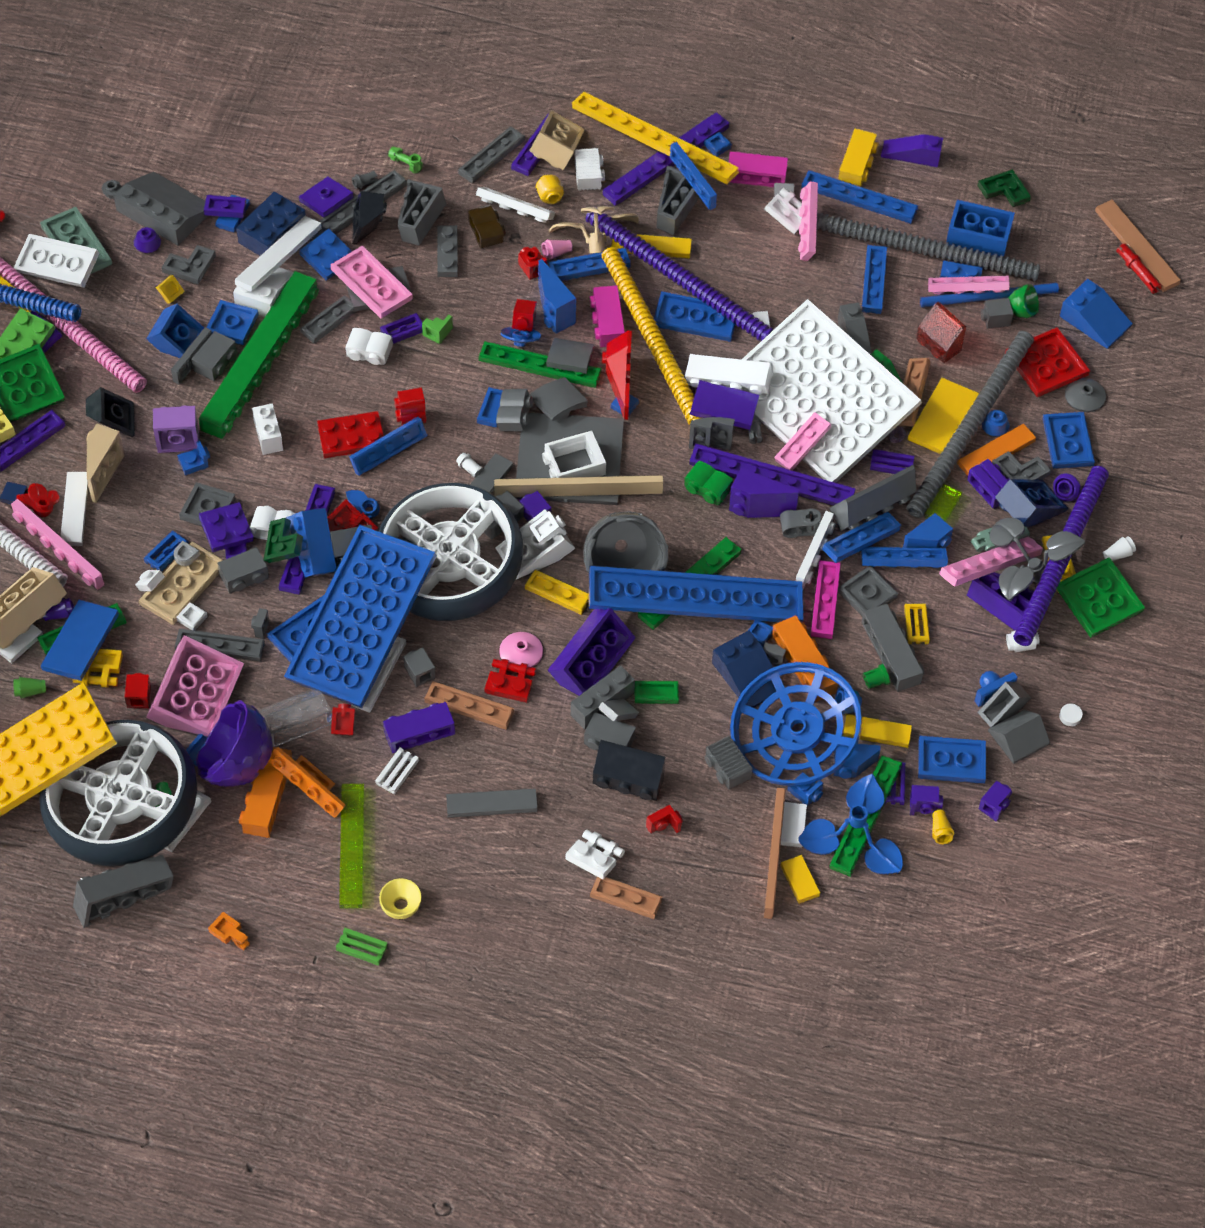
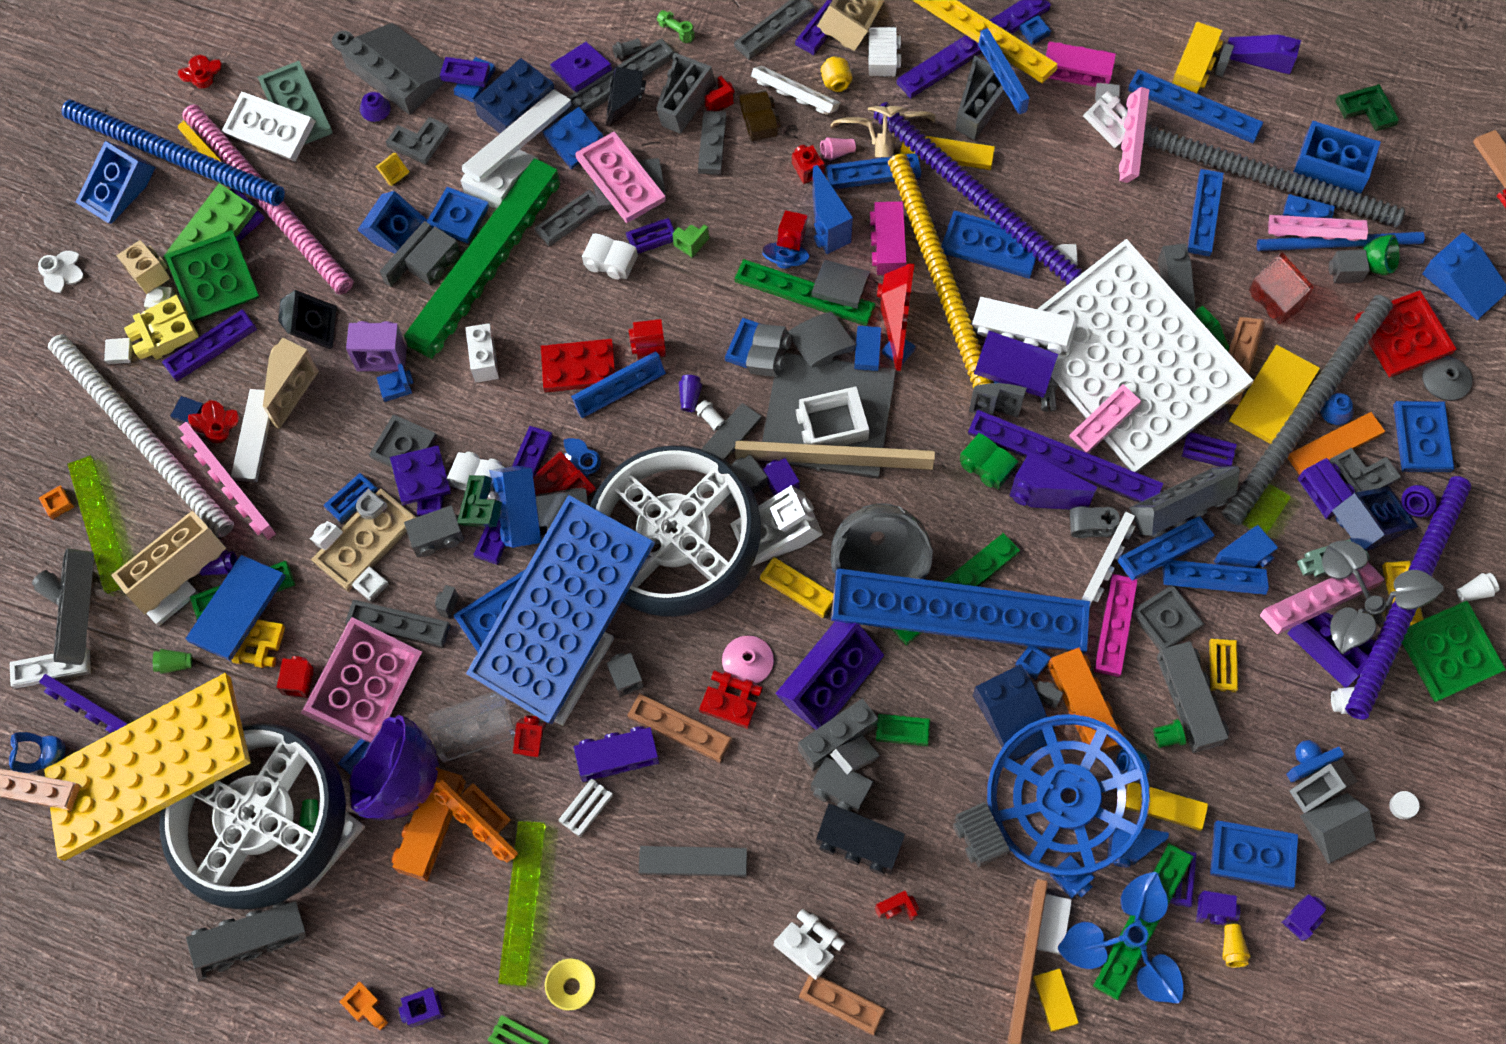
camera: 10 degrees right, 10 degrees up
(281, 922) = (410, 1004): none -> dark purple brick
(449, 448) = (689, 389): none -> dark purple cone
(451, 214) = (720, 98): none -> red bracket
(598, 404) = (867, 348): none -> blue tile
(880, 158) = (1223, 60): none -> dark grey tile

